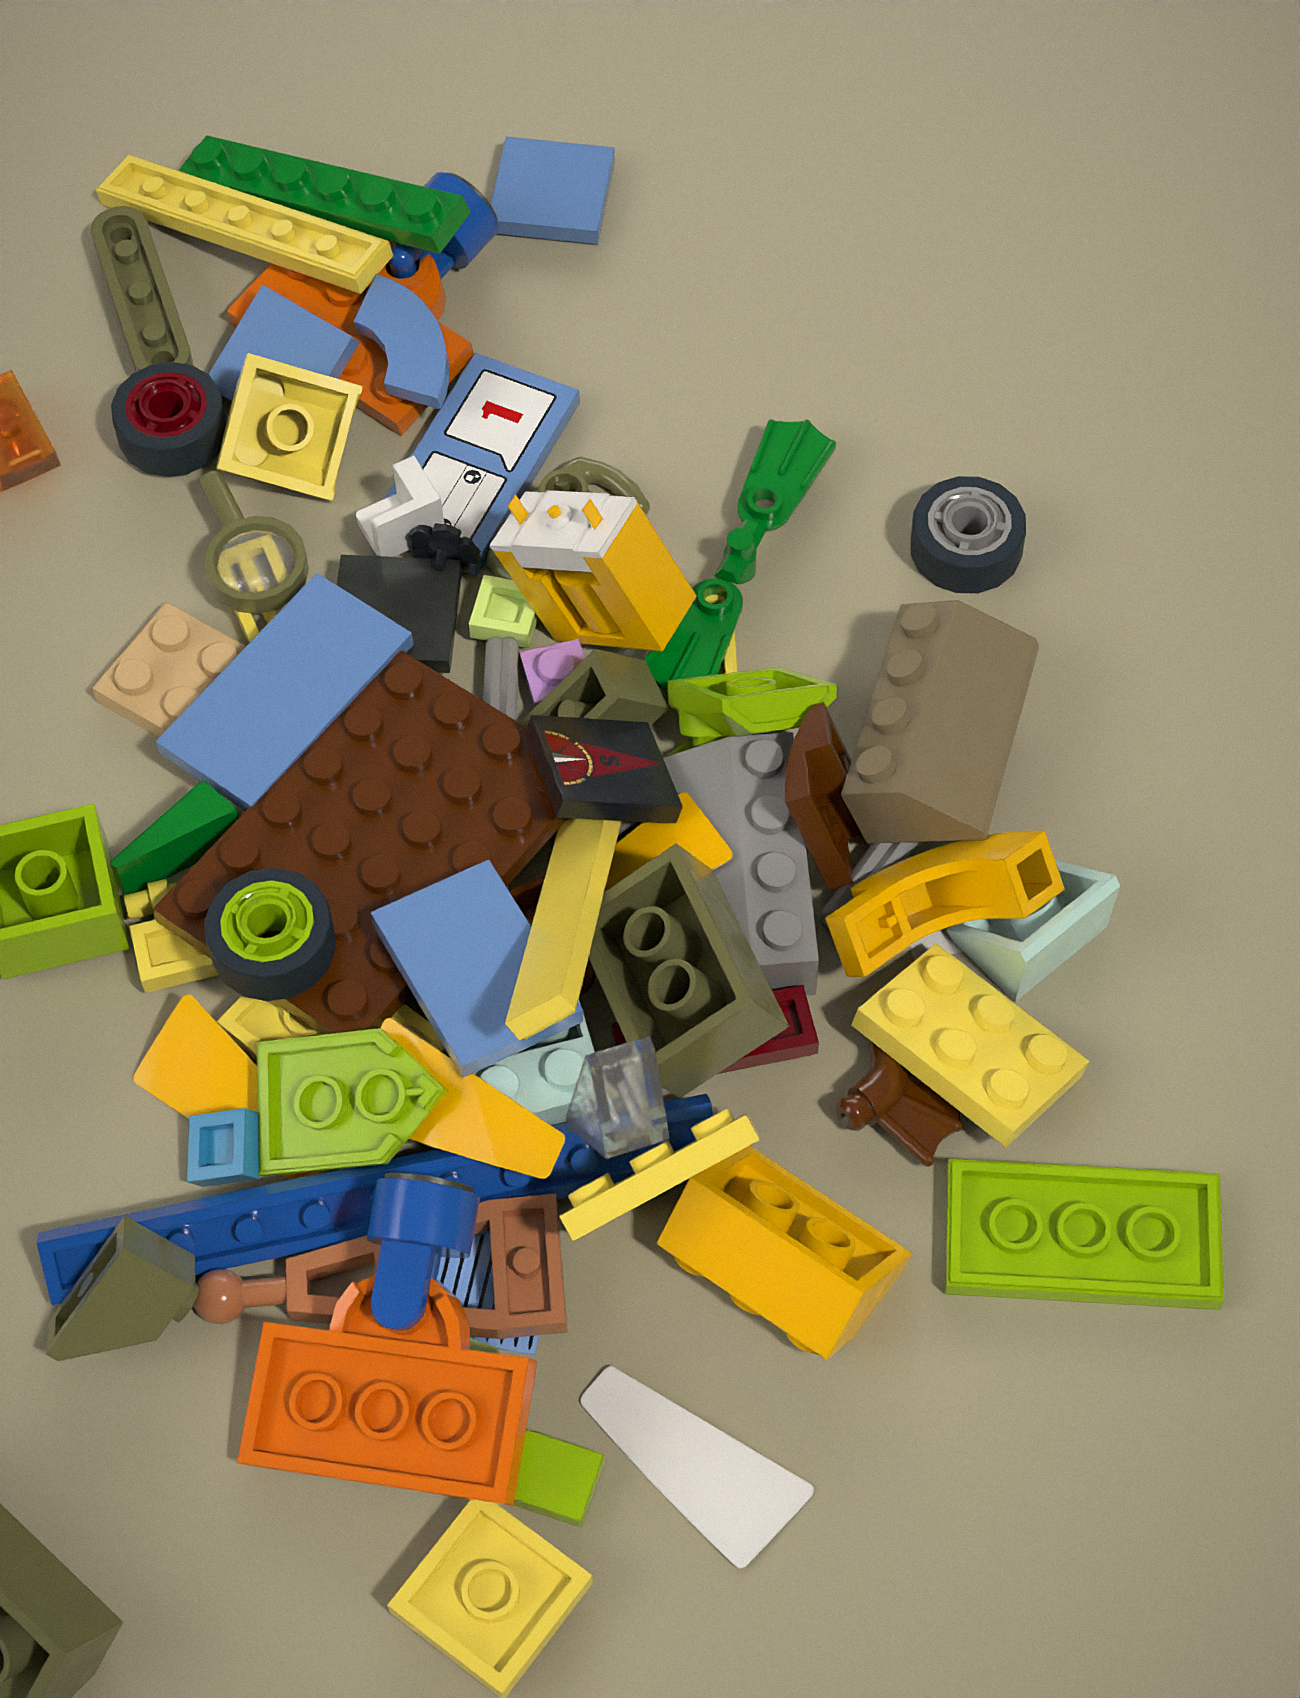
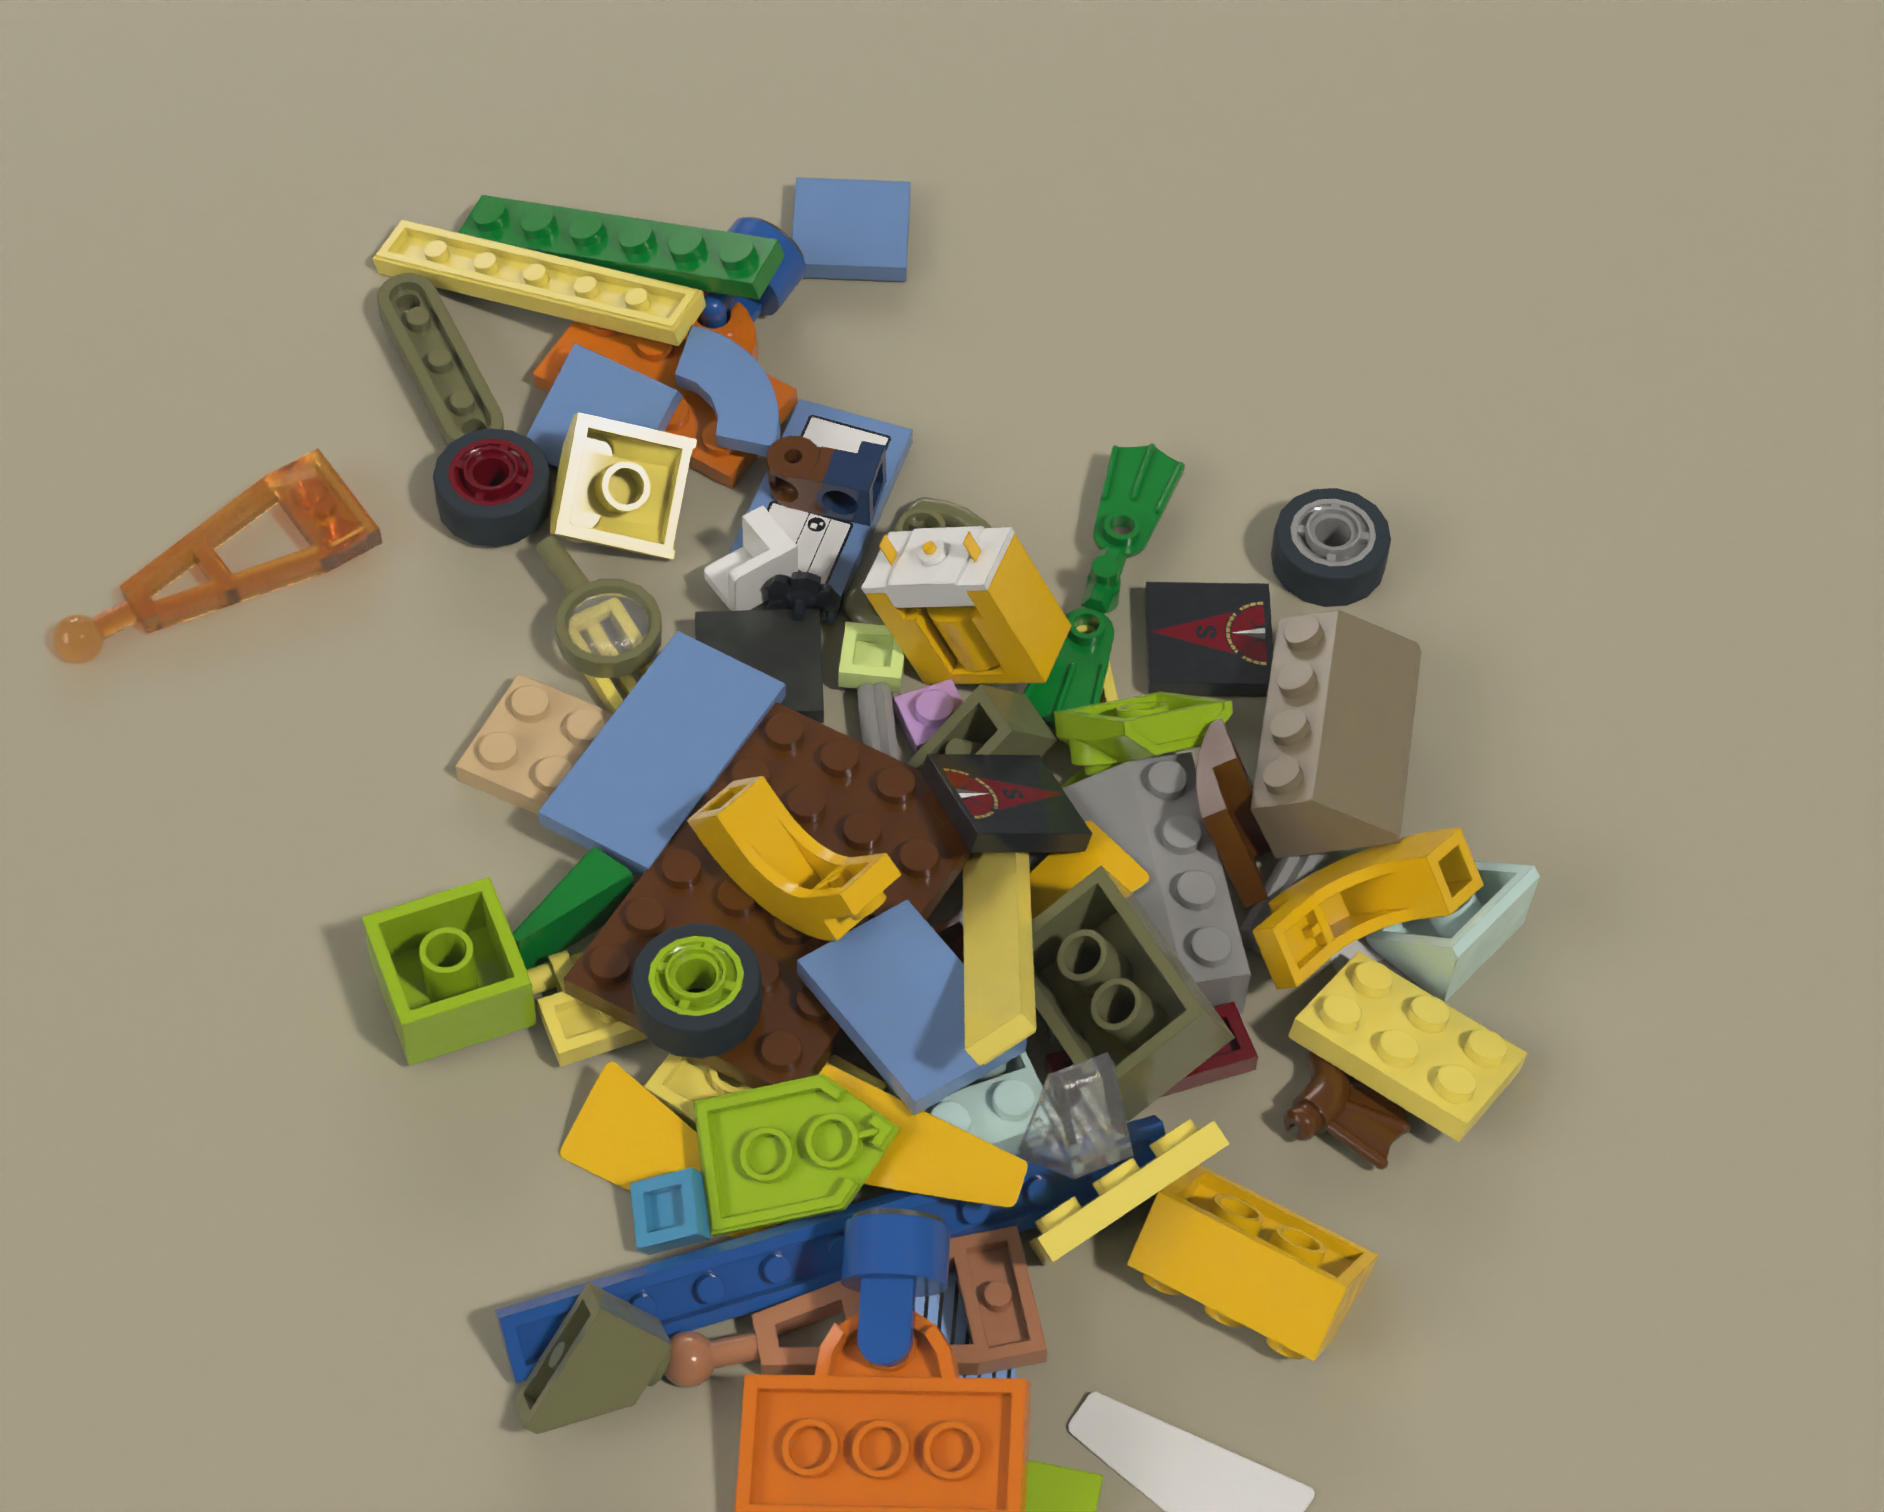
camera: 10 degrees left, 5 degrees down
(374, 816) = (785, 866): none -> yellow arch
(486, 433) = (827, 479): none -> leg
(834, 616) = (1208, 638): none -> black tile
(1084, 1234) = (1544, 1221): lime tile -> none

